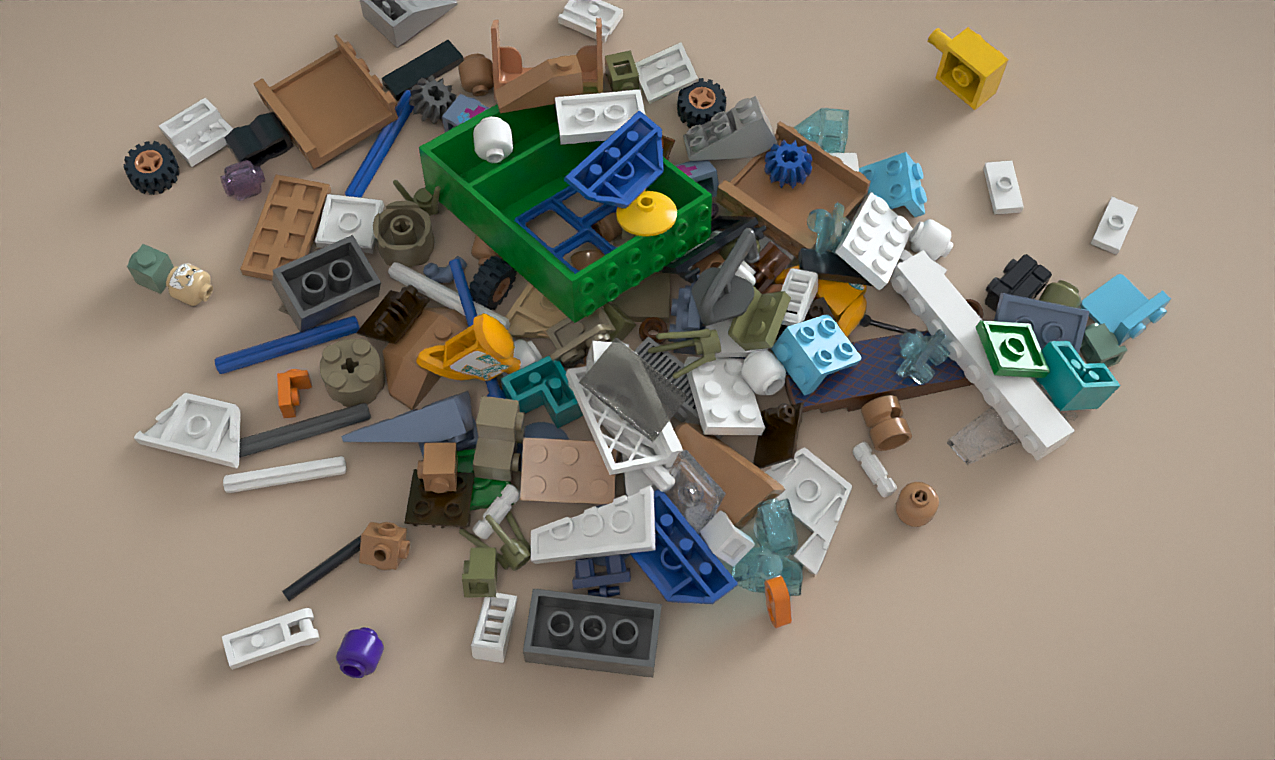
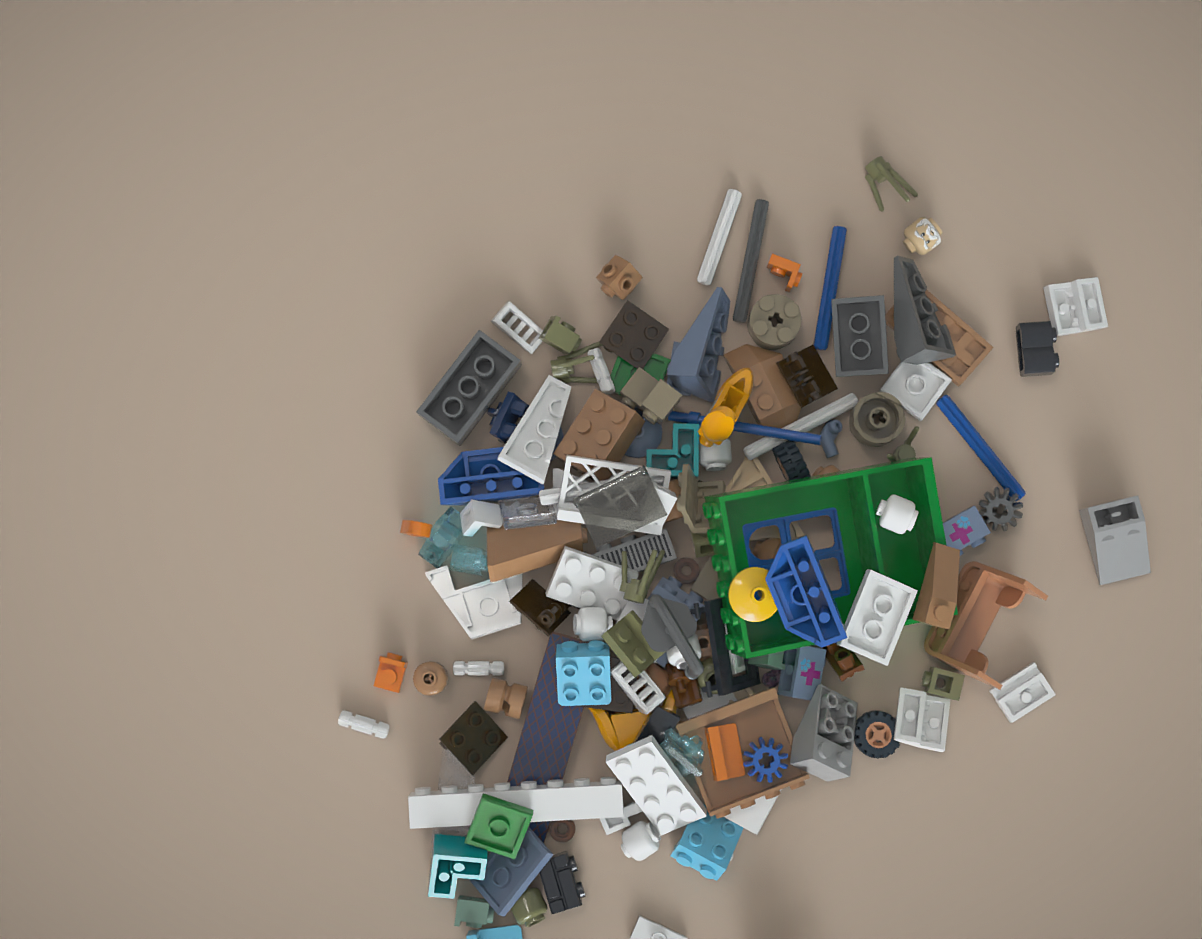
camera: 125 degrees right, 20 degrees up
(136, 356) = (882, 170): none -> olive plant
(150, 268) = (953, 213): sand green brick -> none
(153, 157) = (1062, 247): black wheel -> none
(197, 429) = (788, 190): white wing -> none
(242, 180) = (1001, 318): clear purple head -> none
(269, 638) = (596, 170): white plate -> none
(296, 234) = (916, 326): none -> dark grey wedge
(322, 569) = (630, 231): black bar -> none
(329, 104) = (1043, 421): medium nougat panel -> none
(359, 652) = (550, 225): dark purple head -> none
(433, 62) = (1042, 520): black tile -> none
(439, 467) = (652, 342): medium nougat brick -> none
(476, 74) = (1009, 558): medium nougat head -> none
(804, 200) = (724, 752): none -> orange panel
(827, 129) = (792, 821): clear light blue slope -> none
(866, 321) = (571, 772): black hinge -> none
(917, 351) = (540, 754): clear light blue hips -> none
(937, 552) = (390, 672): none -> orange bracket
(945, 433) = (473, 738): none -> dark brown hinge
(1006, 549) = (363, 724): none -> white axle

